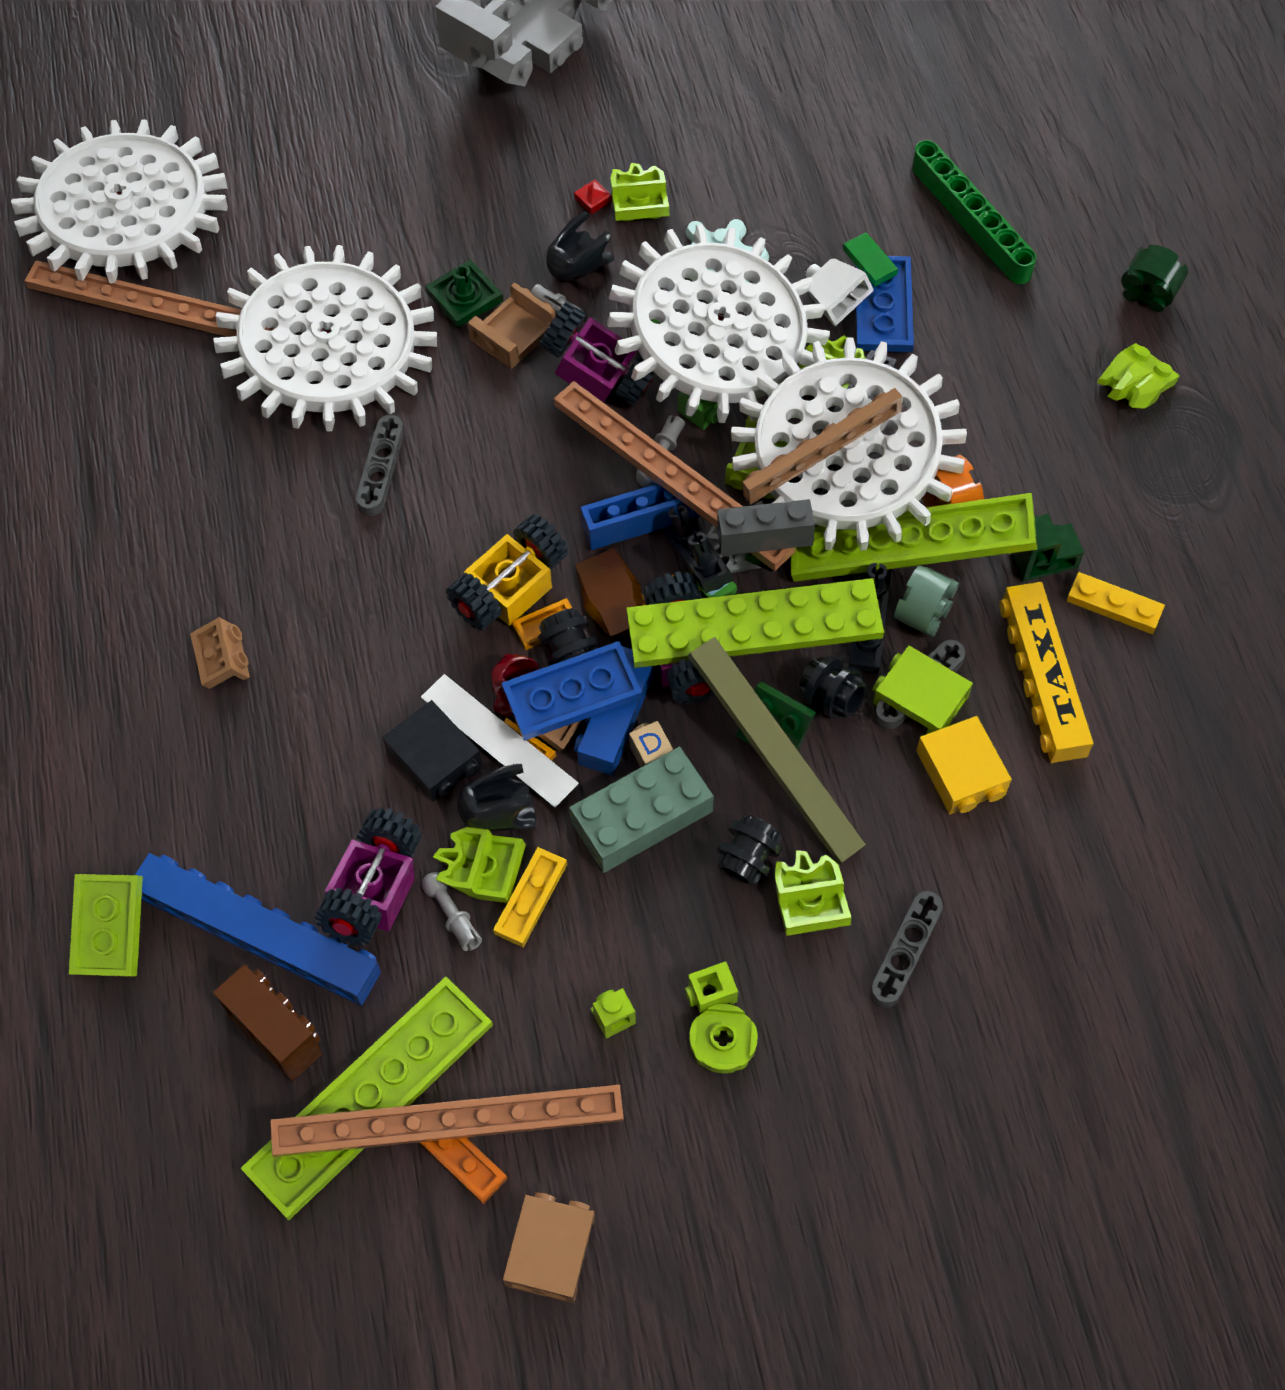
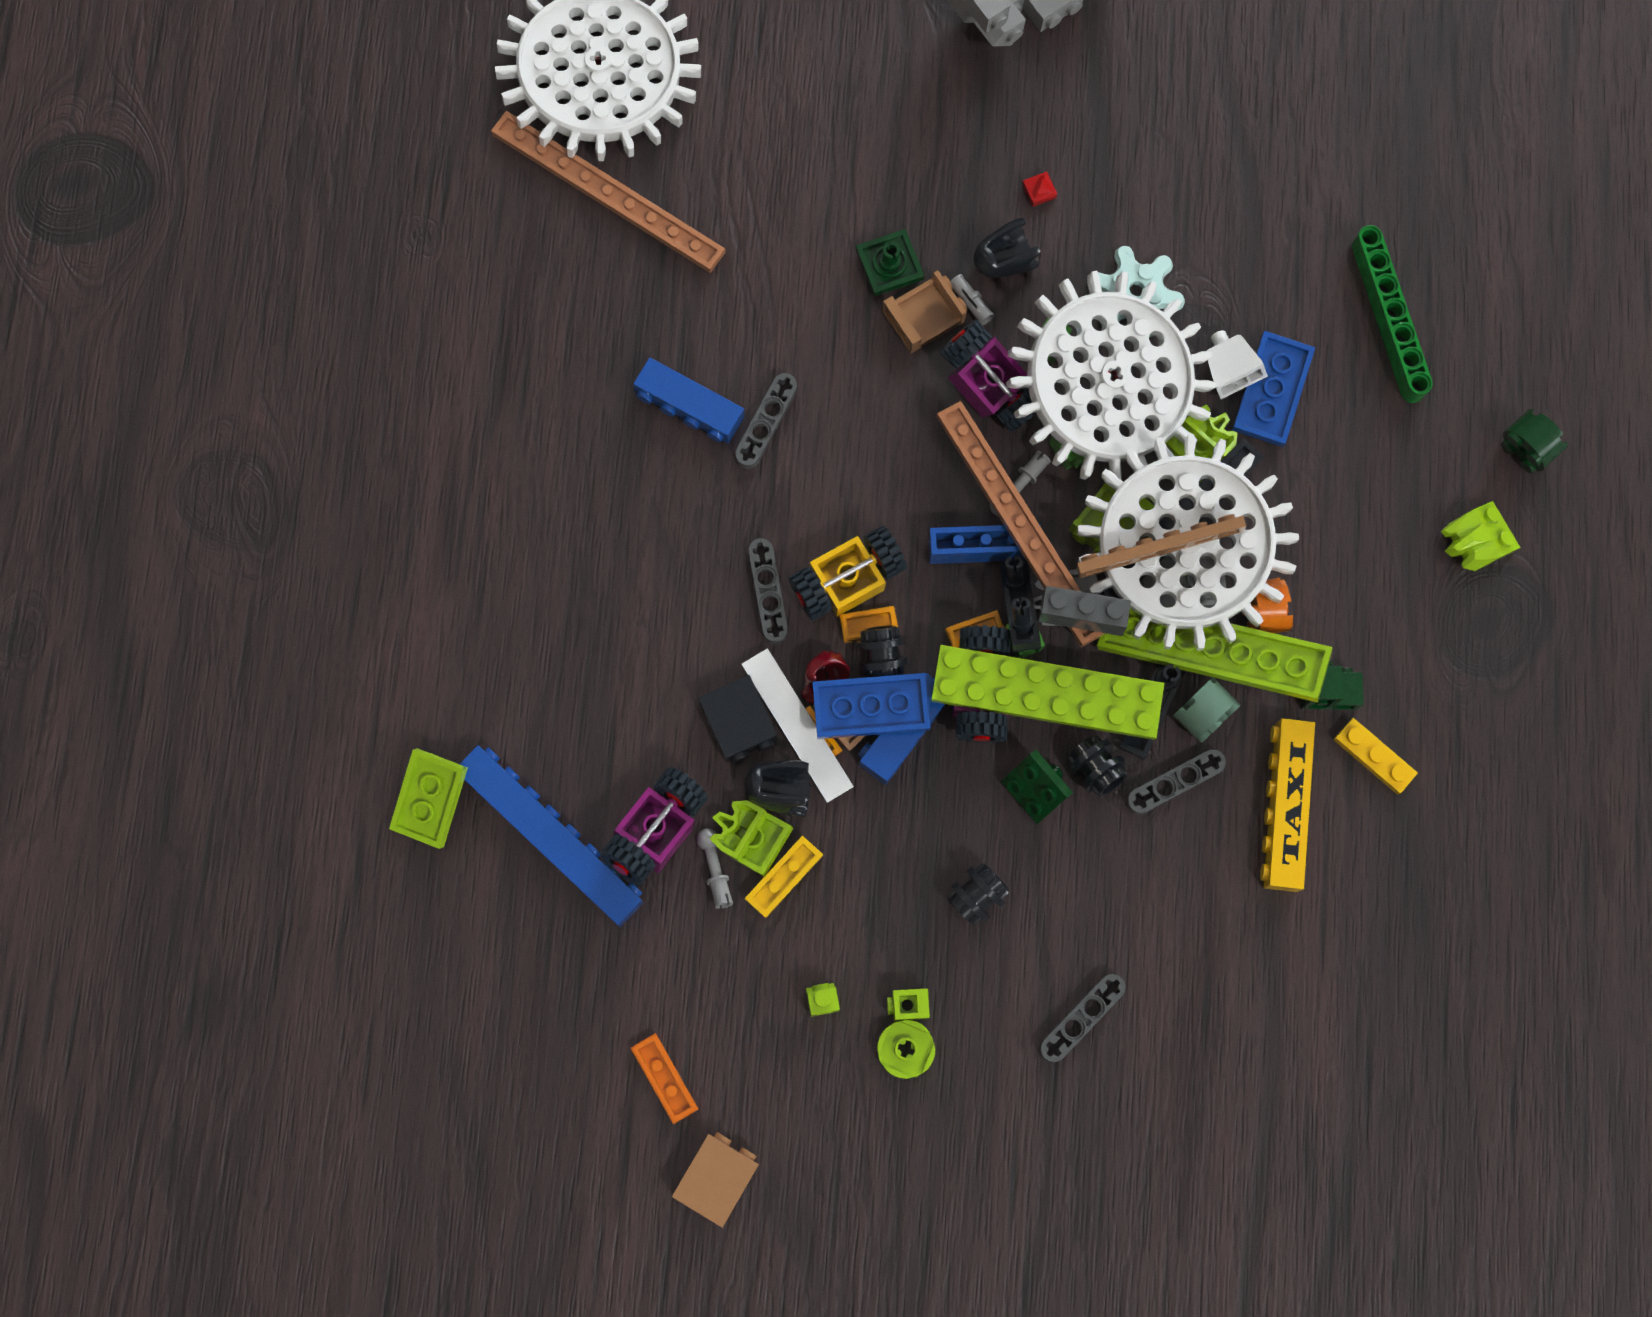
camera: 10 degrees right, 15 degrees up
(219, 652) = (579, 569): medium nougat bracket -> none
(269, 1021) = (541, 925): reddish brown brick -> none
(293, 465) = (688, 400): none -> blue brick
(325, 337) = (727, 215): white gear -> none
(383, 1077) = (605, 1009): lime plate -> none
(430, 620) = (768, 591): none -> dark grey beam
(445, 1120) = (663, 1052): nougat plate -> none
(608, 591) = (933, 613): reddish brown piece -> none
(639, 193) = (1083, 200): lime plate -> none
(641, 809) = (899, 828): sand green brick -> none
(648, 743) = (924, 773): tan brick -> none
(776, 750) = (1028, 814): olive tile -> none
(811, 895) = (1017, 948): lime plate -> none
(870, 259) = (1275, 341): green tile -> none
(922, 689) = (1174, 791): lime panel -> none
(963, 765) = (1186, 871): yellow brick -> none

